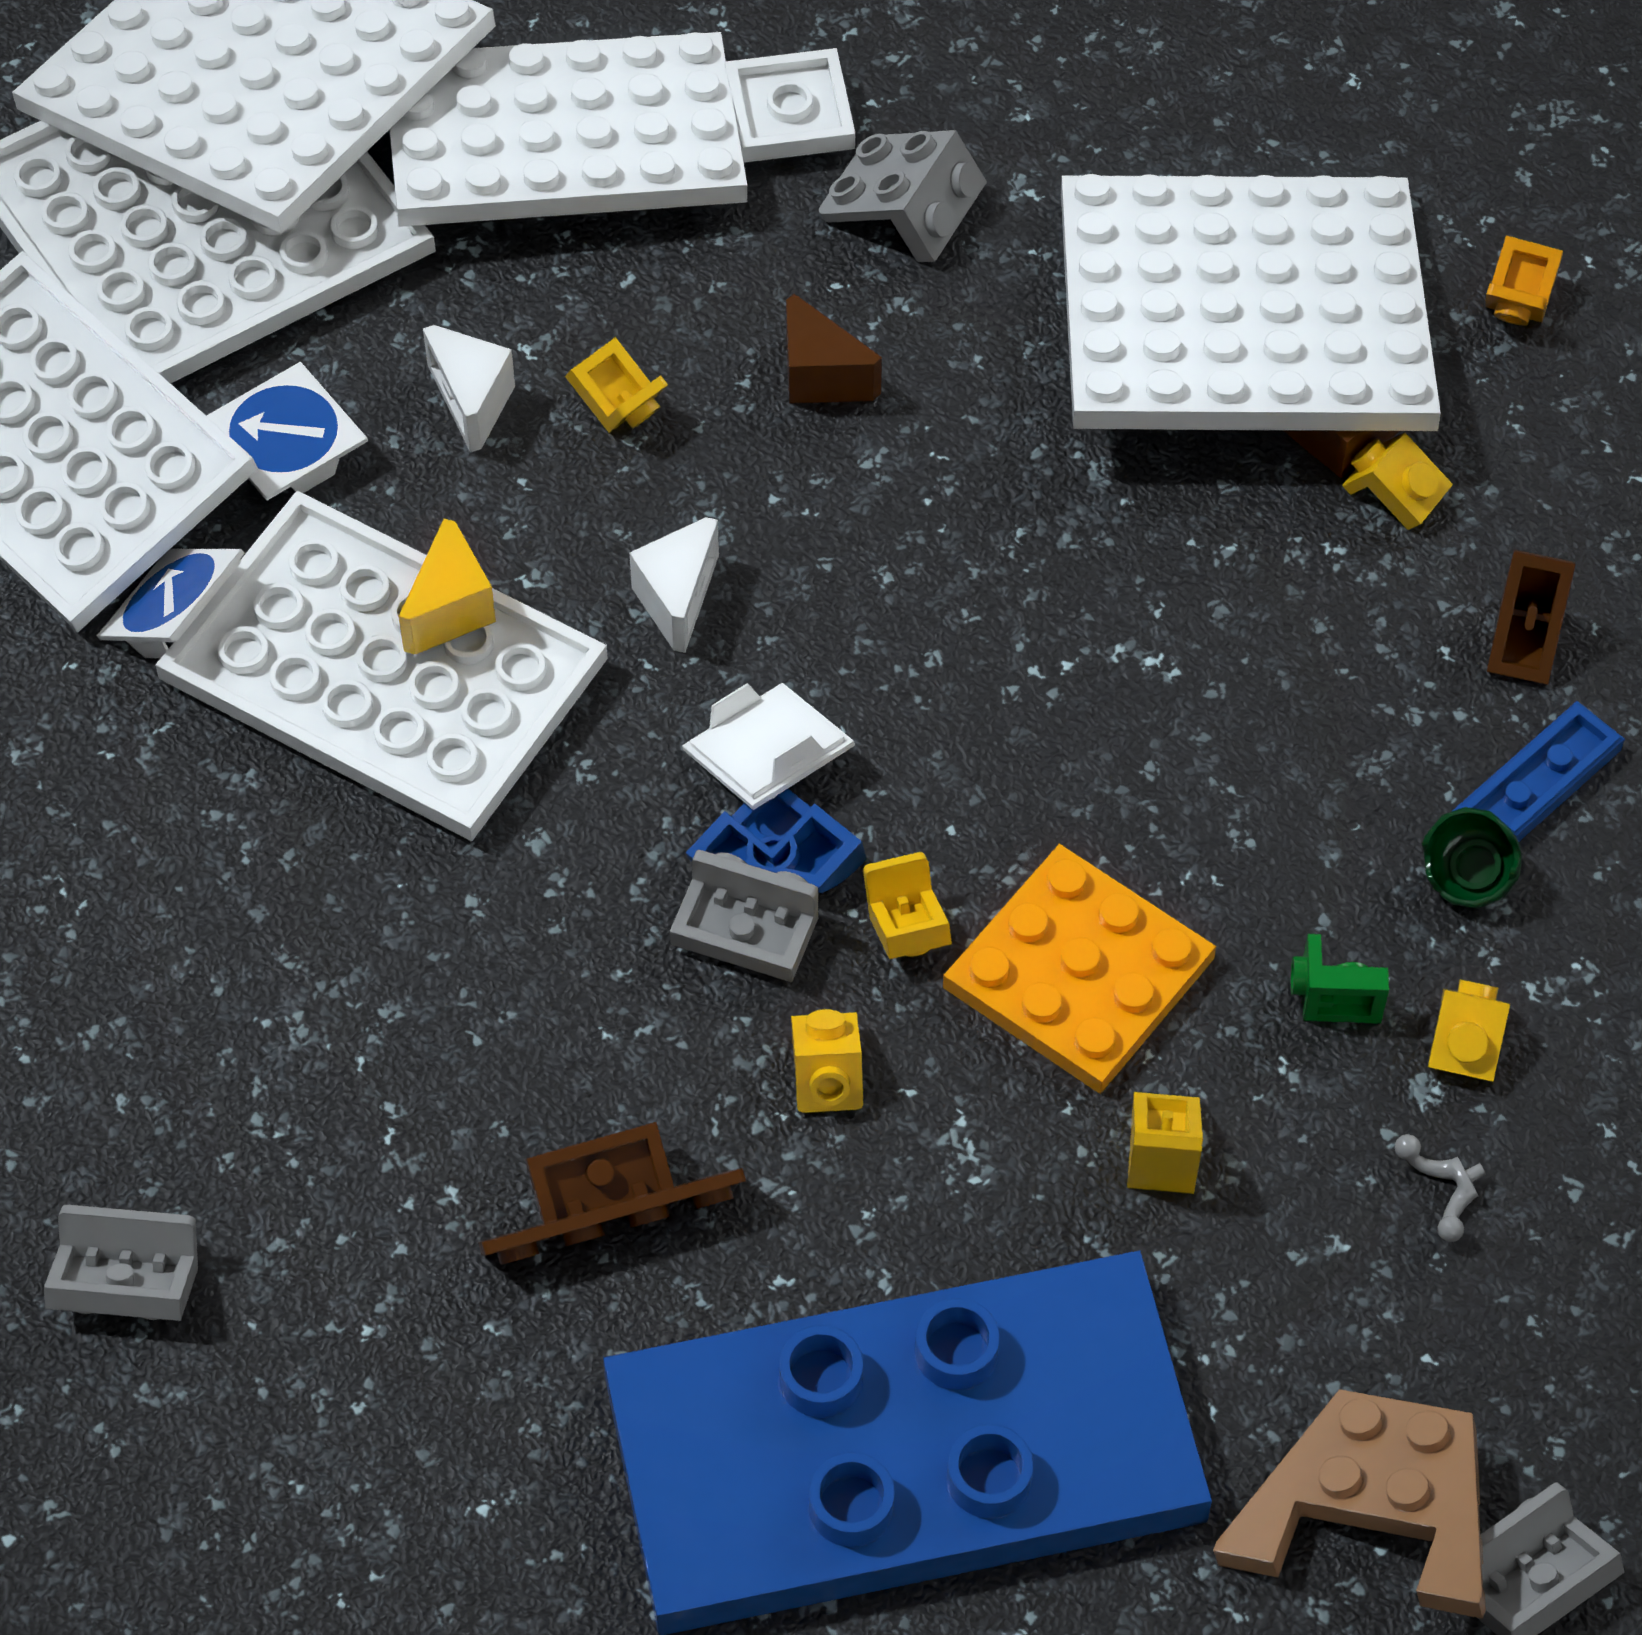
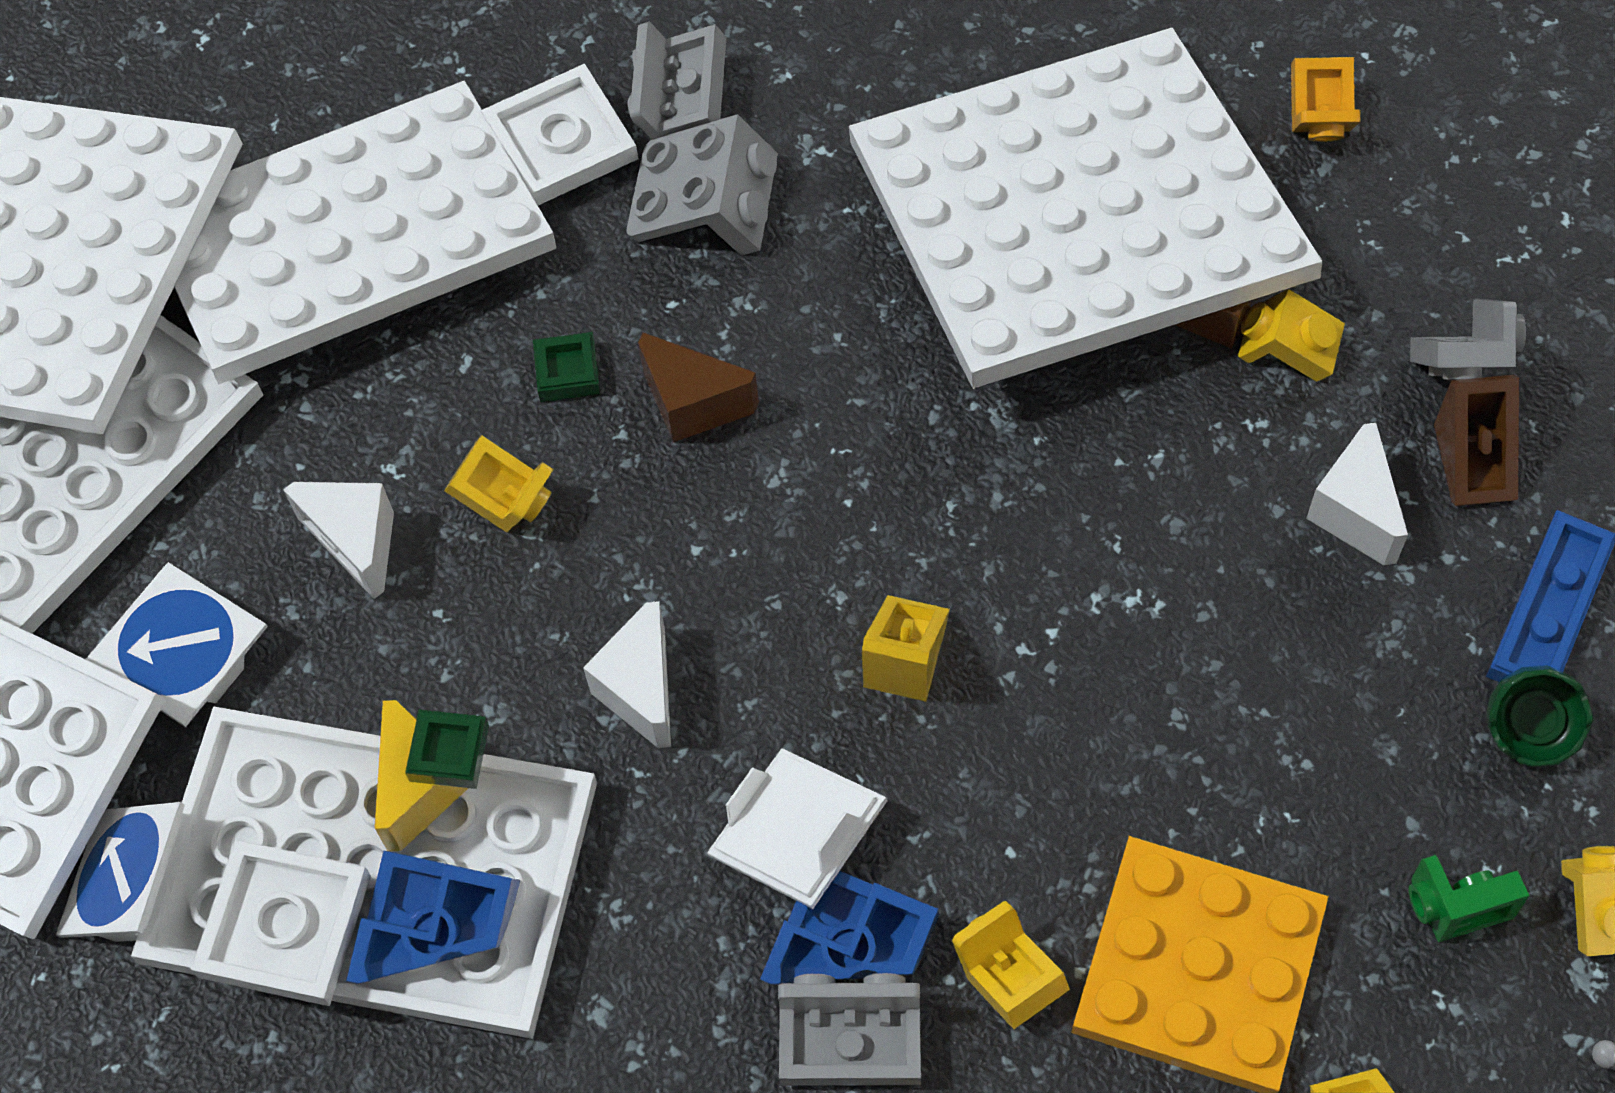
camera: 15 degrees left, 5 degrees up
(292, 672) = (281, 922): none -> white plate
(421, 707) = (429, 915): none -> blue slope
(484, 571) = (447, 749): none -> dark green tile
(717, 309) = (566, 367): none -> dark green tile
(916, 86) = (676, 79): none -> light grey bracket
(921, 631) = (903, 647): none -> yellow slope
(1389, 632) = (1360, 500): none -> white slope
(1547, 536) = (1494, 342): none -> light grey bracket

